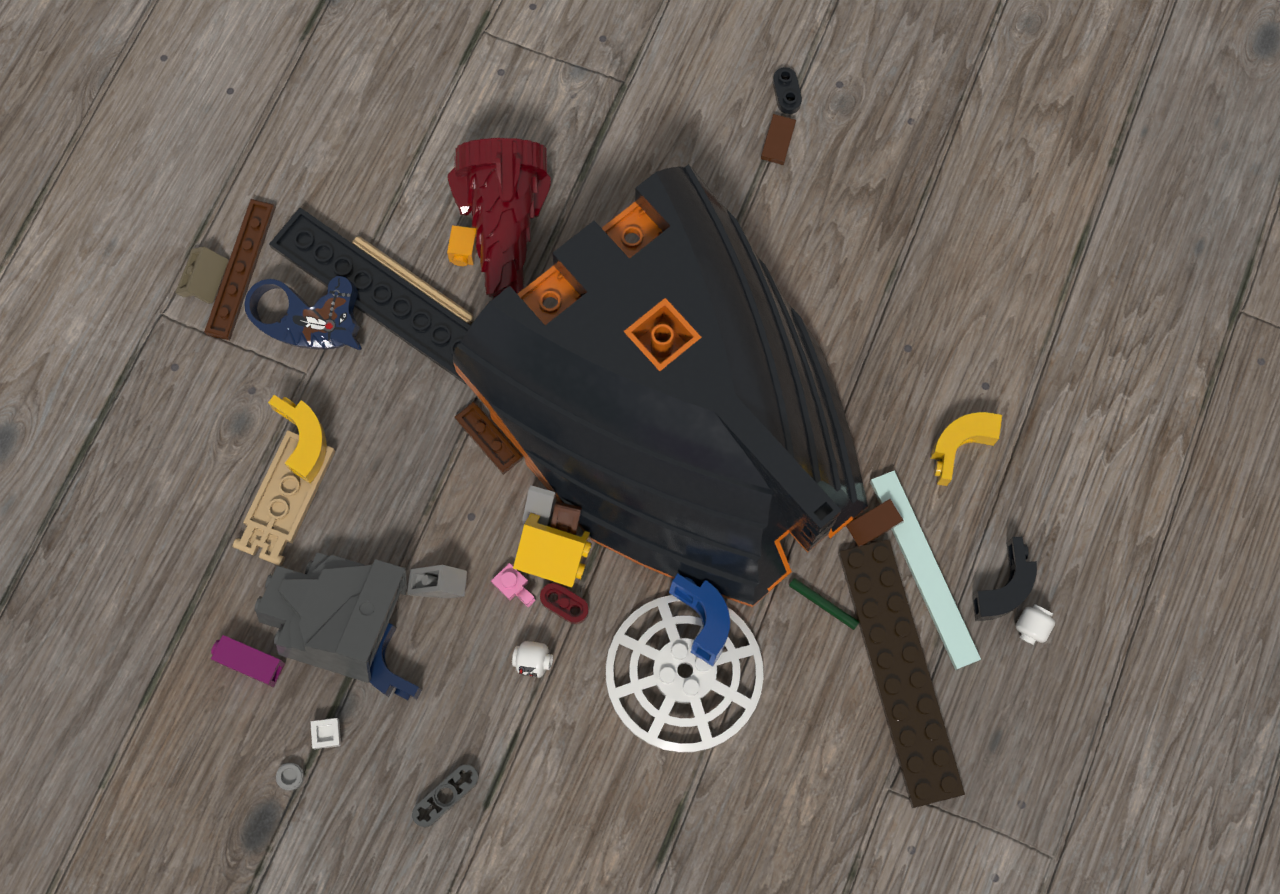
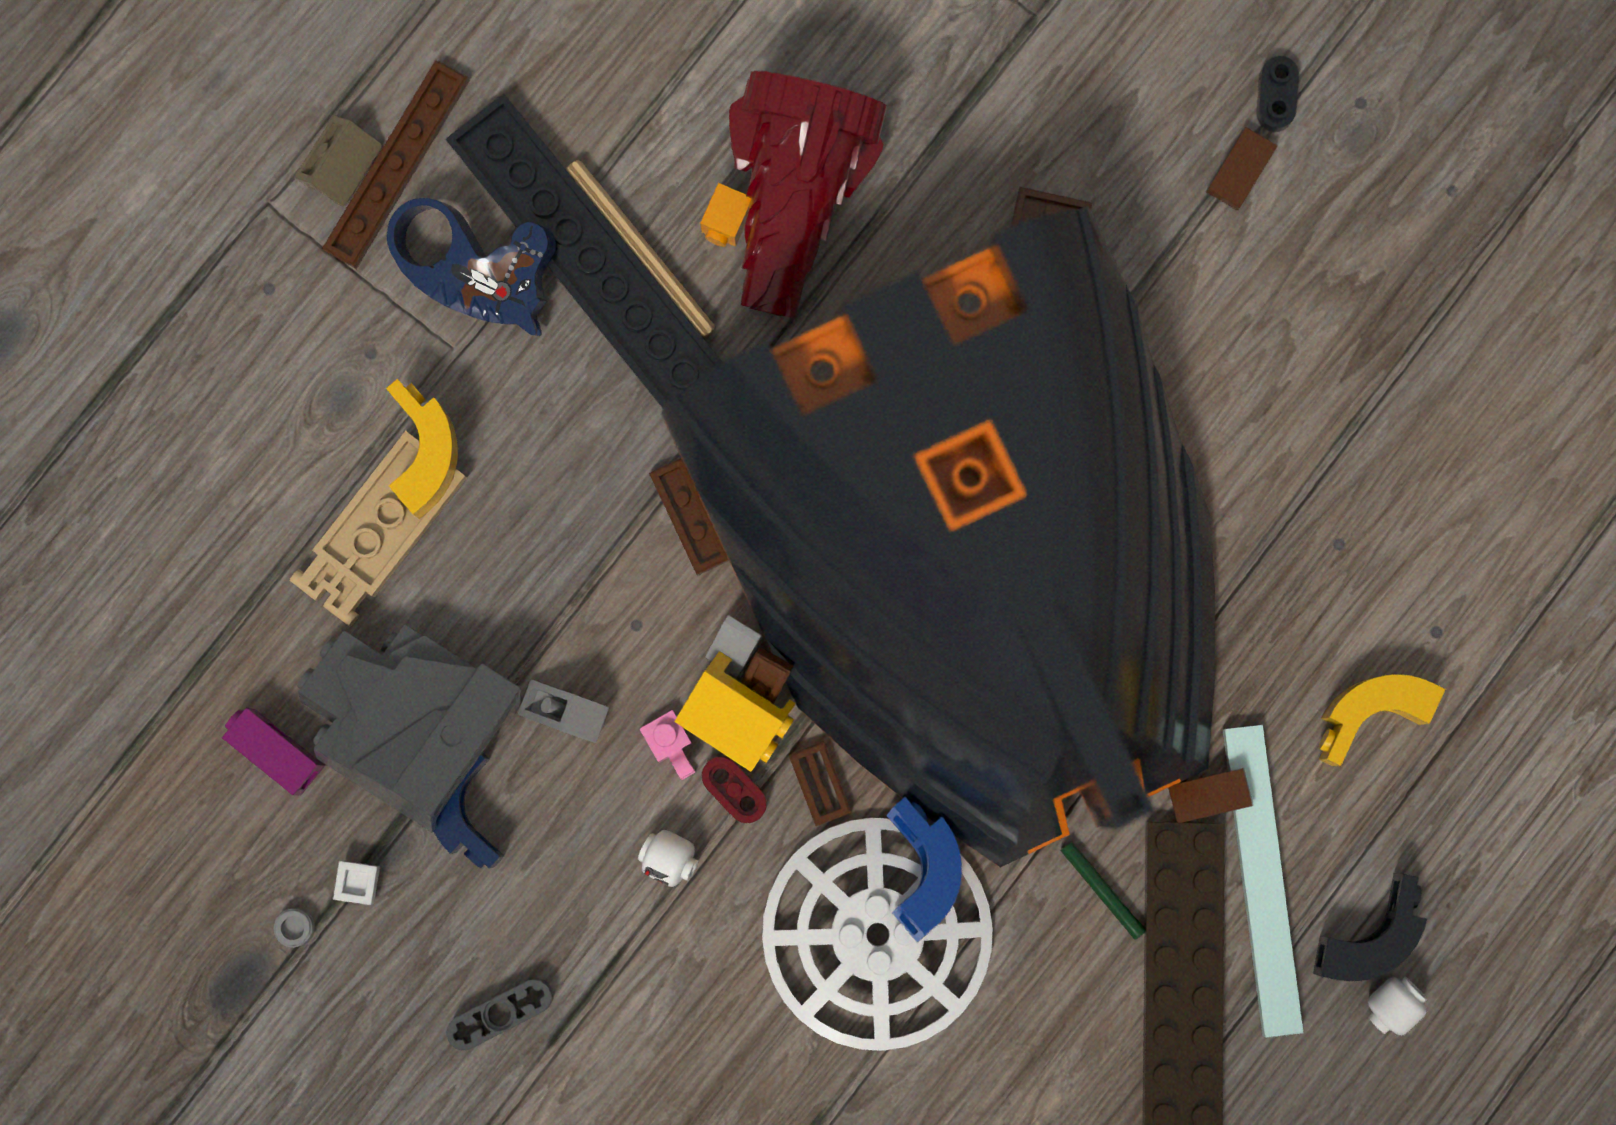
camera: 20 degrees right, 10 degrees up
(632, 603) = (808, 753): none -> reddish brown tile

